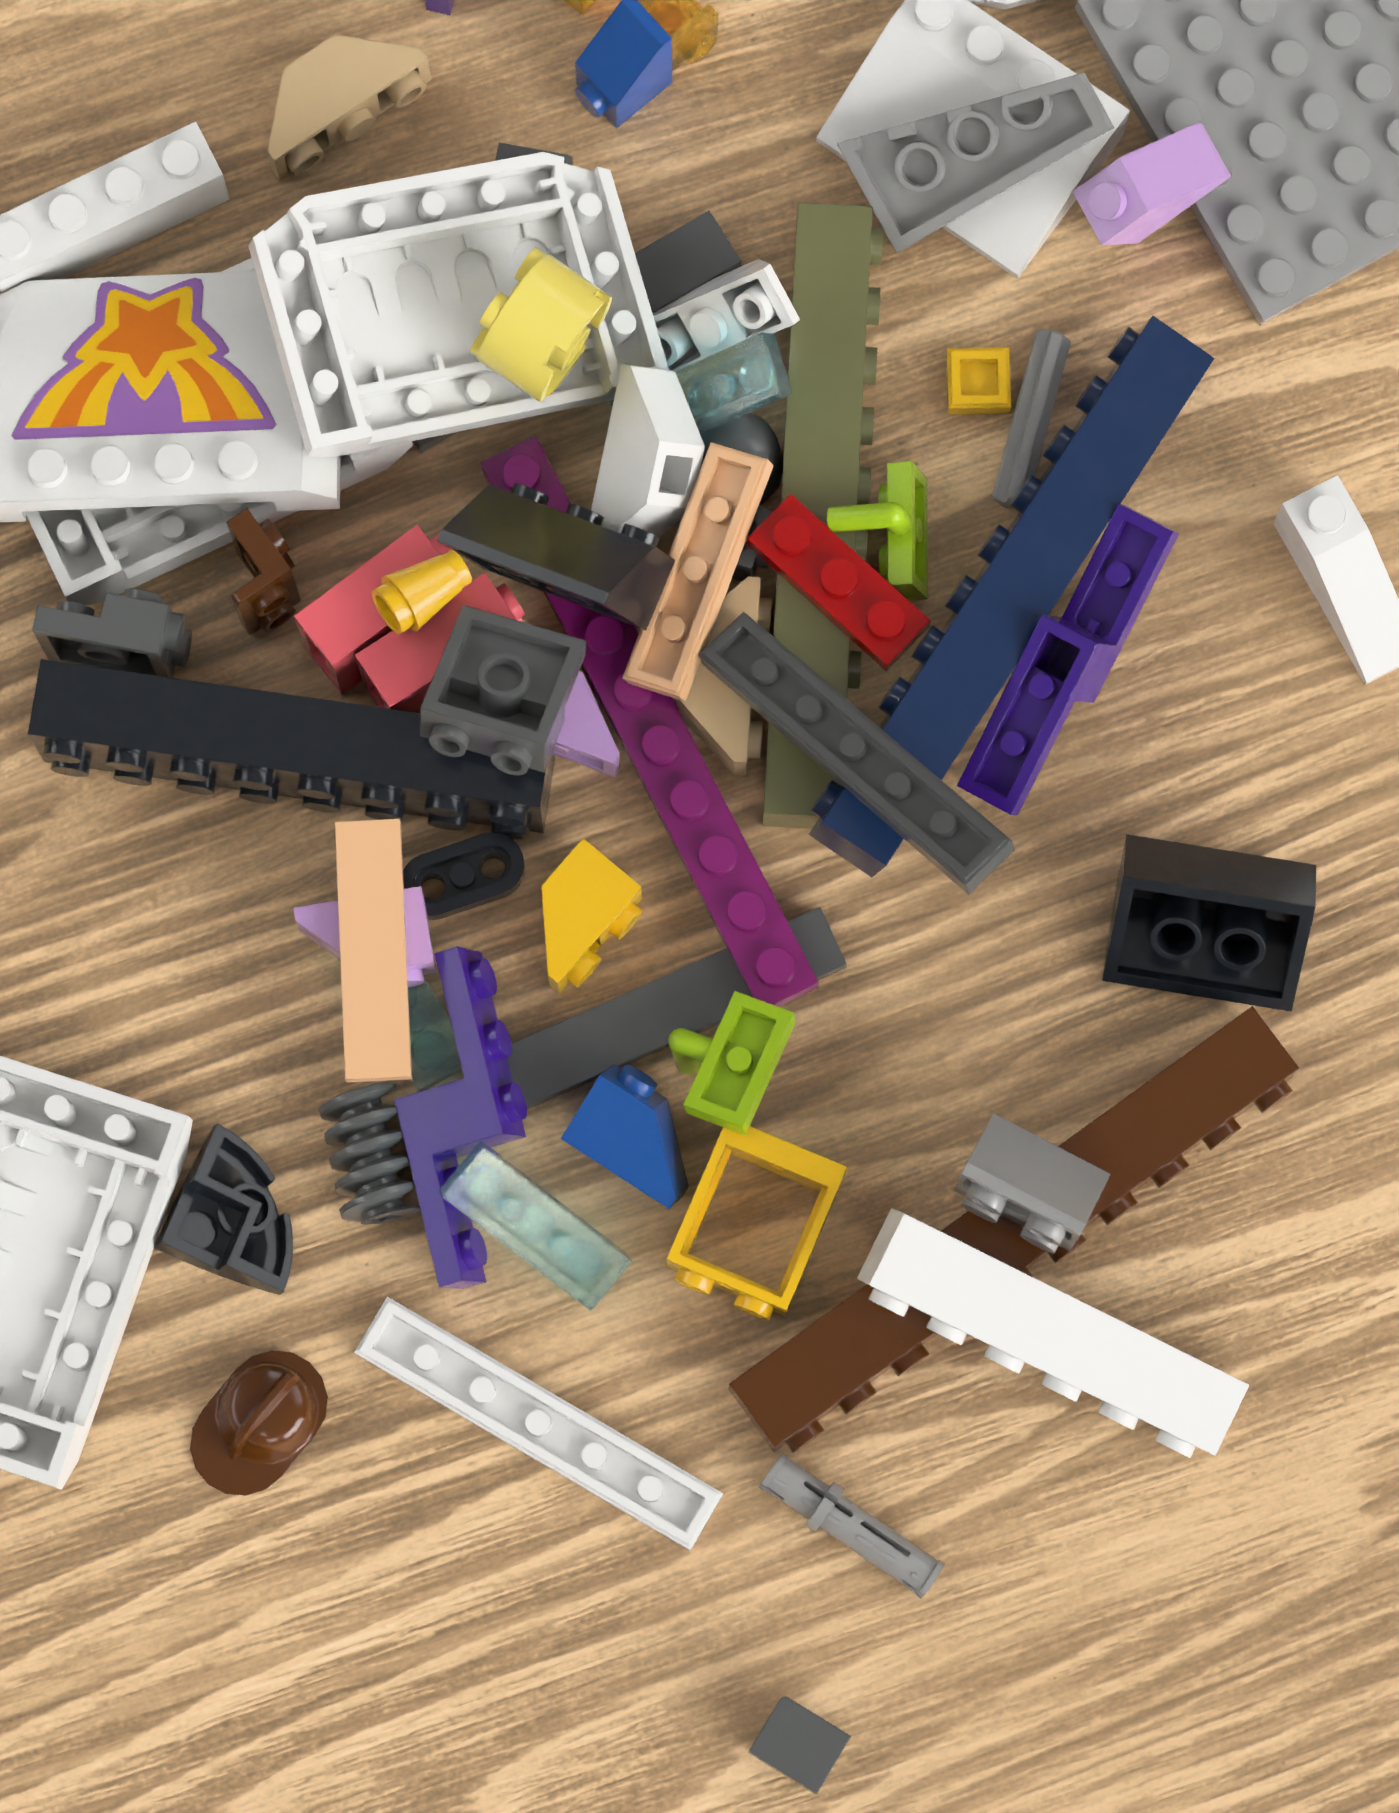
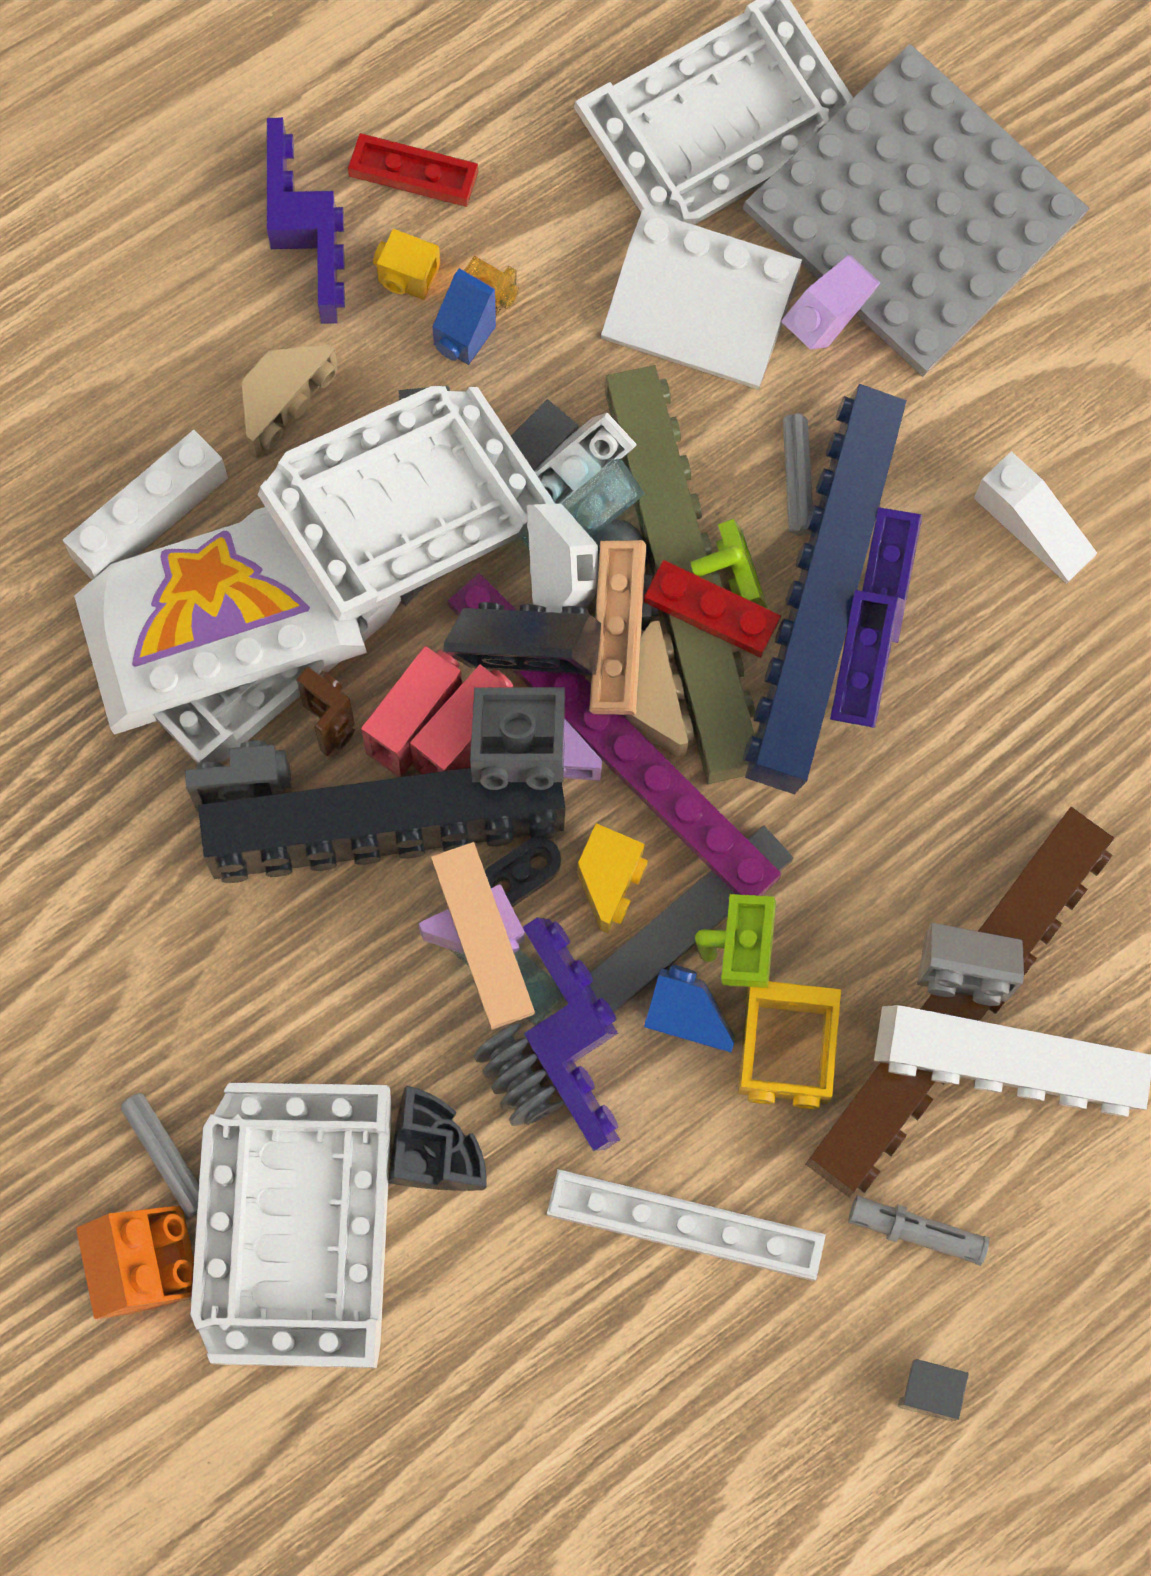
camera: 20 degrees left, 5 degrees down
(258, 1422) = (495, 1282): reddish brown piece -> none
(419, 591) = (441, 688): yellow cone -> none
(535, 1225) = (644, 1090): clear light blue plate -> none
(541, 326) = (466, 493): light yellow brick -> none
(857, 753) = (765, 712): dark grey tile -> none
(959, 159) = (704, 318): light grey wing -> none
(978, 381) = (755, 459): yellow tile -> none
(1210, 922) = (1022, 762): black slope -> none

